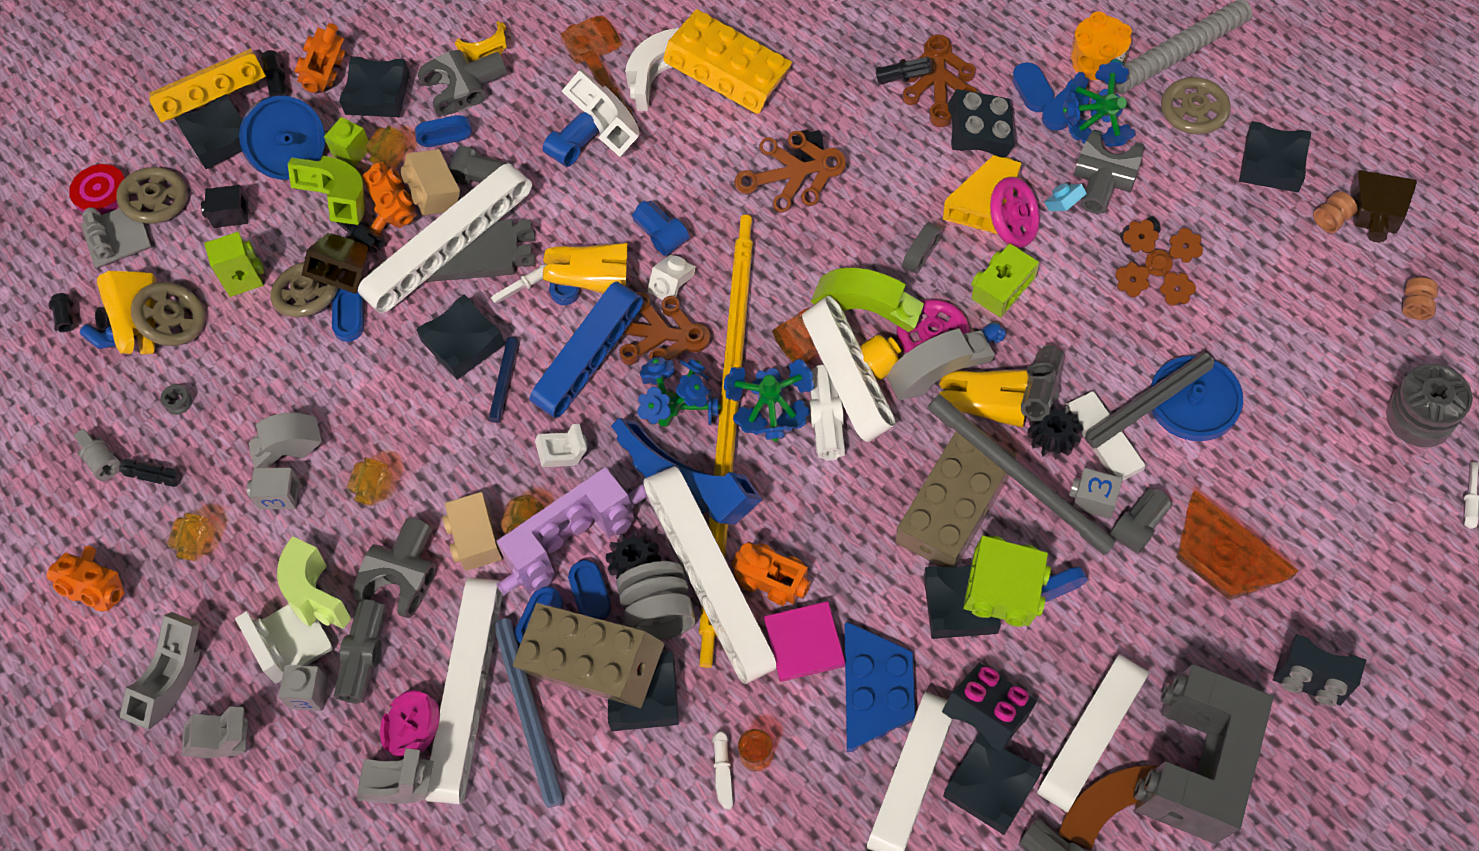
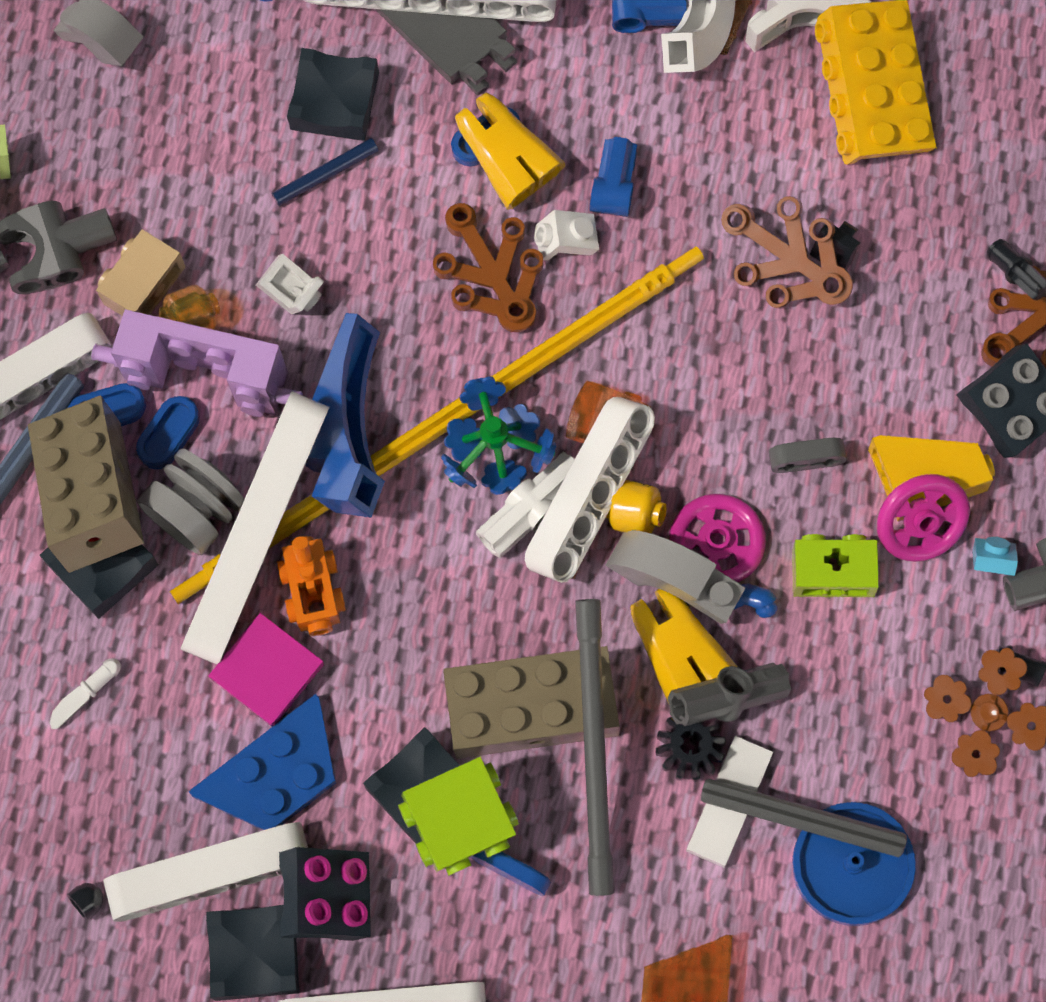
camera: 50 degrees right, 10 degrees up
(273, 488) = (44, 65): light grey brick -> none
(370, 481) = (118, 143): clear yellow head -> none
(526, 281) = (450, 102): white piece -> none
(586, 349) = (411, 222): blue beam -> none
(630, 547) = (238, 435): black gear -> none
(660, 405) = (426, 354): blue plant -> none
(753, 743) = (114, 703): clear orange wheel -> none
(872, 292) = (694, 447): lime arch -> none
(1096, 493) = (650, 837): light grey brick -> none
(1138, 526) = (642, 905): dark grey piece -> none

